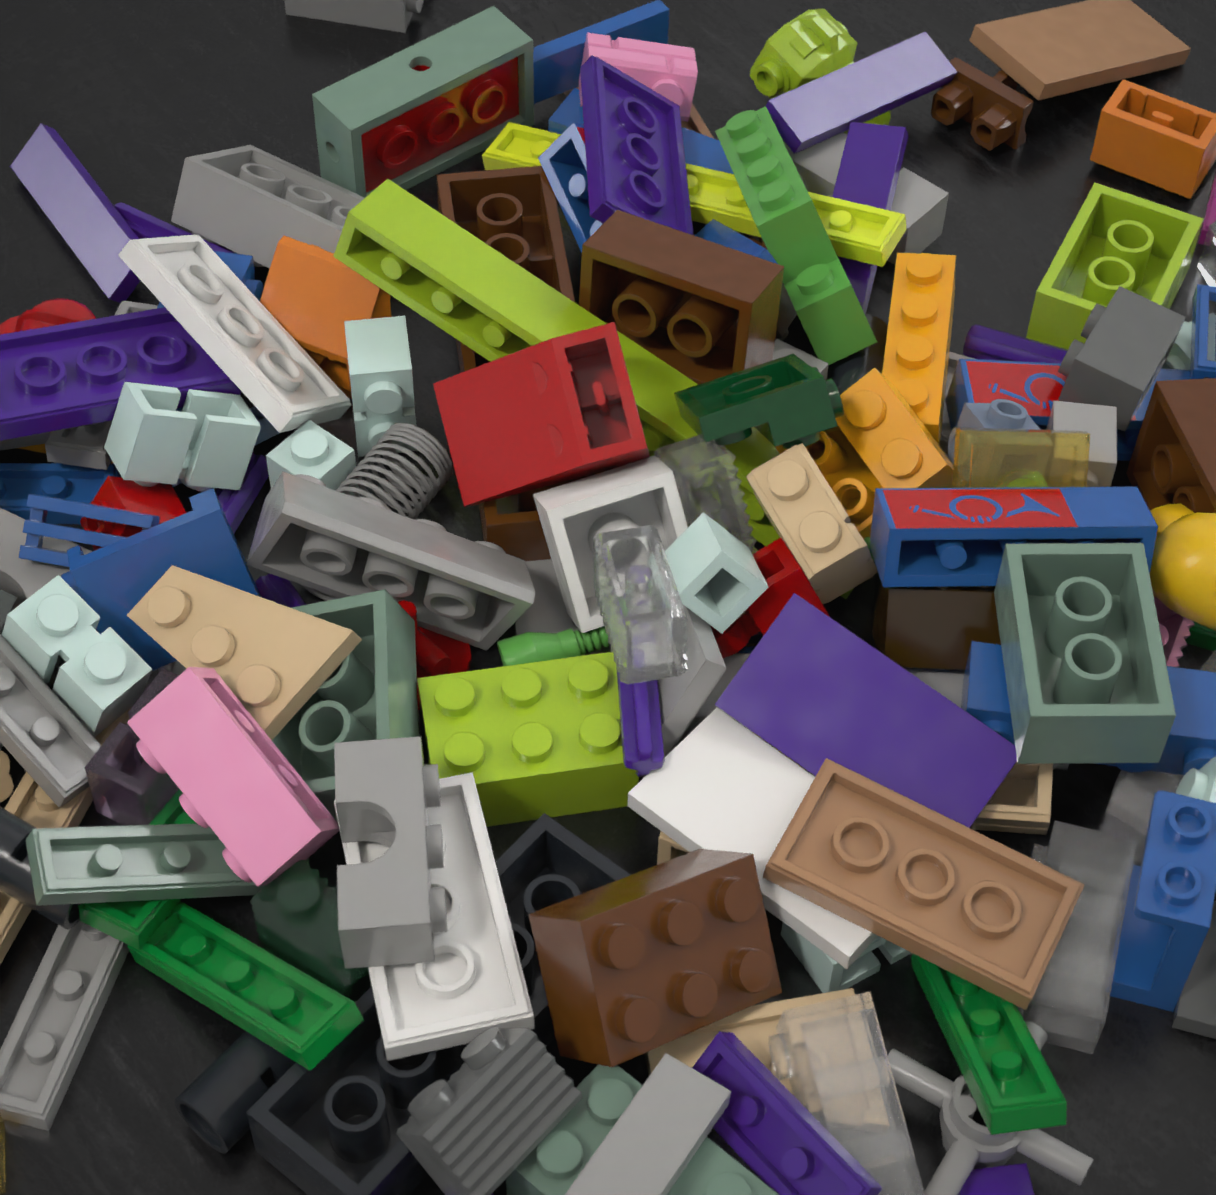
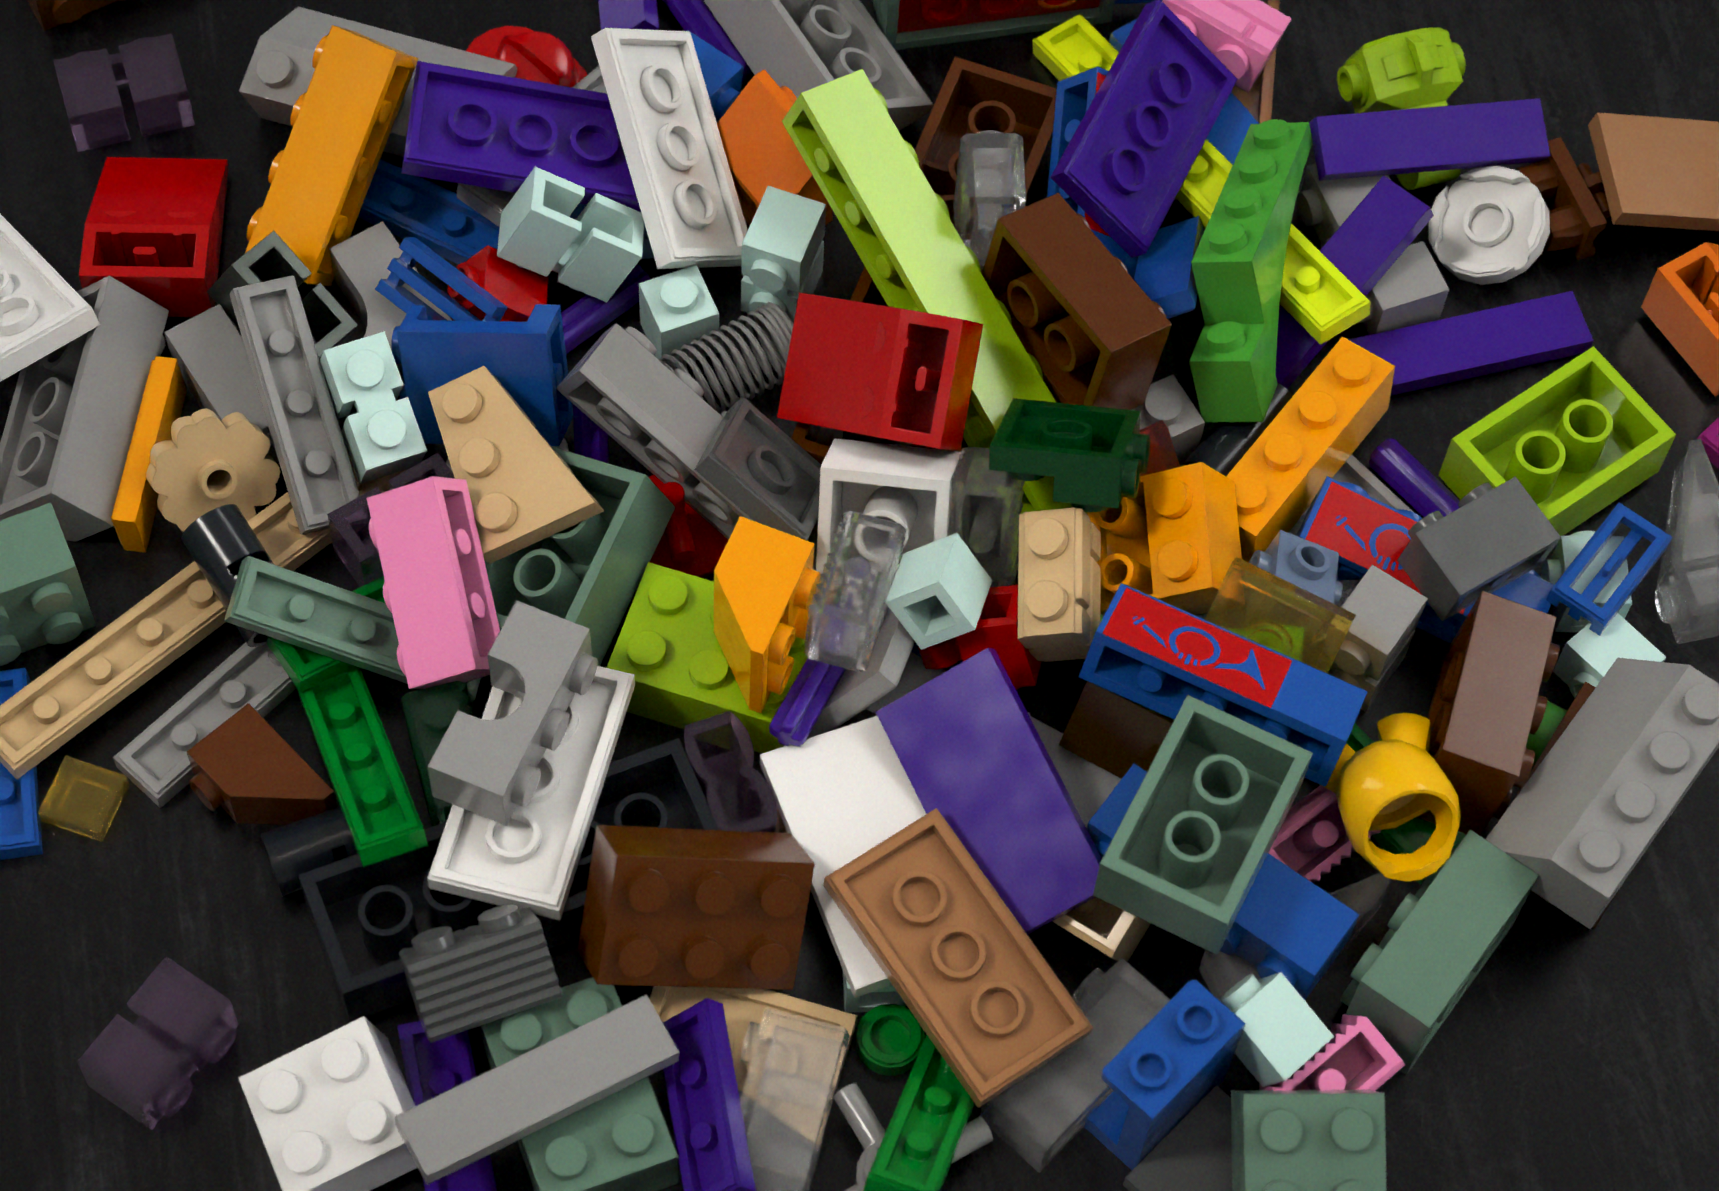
camera: 25 degrees right, 10 degrees up
(138, 1046) = (255, 774): none -> reddish brown slope
(490, 549) = (763, 471): none -> dark grey tile
(549, 234) = (987, 186): none -> clear brick
(565, 654) = (762, 606): none -> light orange slope
(602, 819) = (724, 767): none -> brick
(895, 997) = (889, 1039): none -> green tile
(947, 139) = (1489, 225): none -> white tile
(998, 225) = (1482, 342): none -> dark purple tile

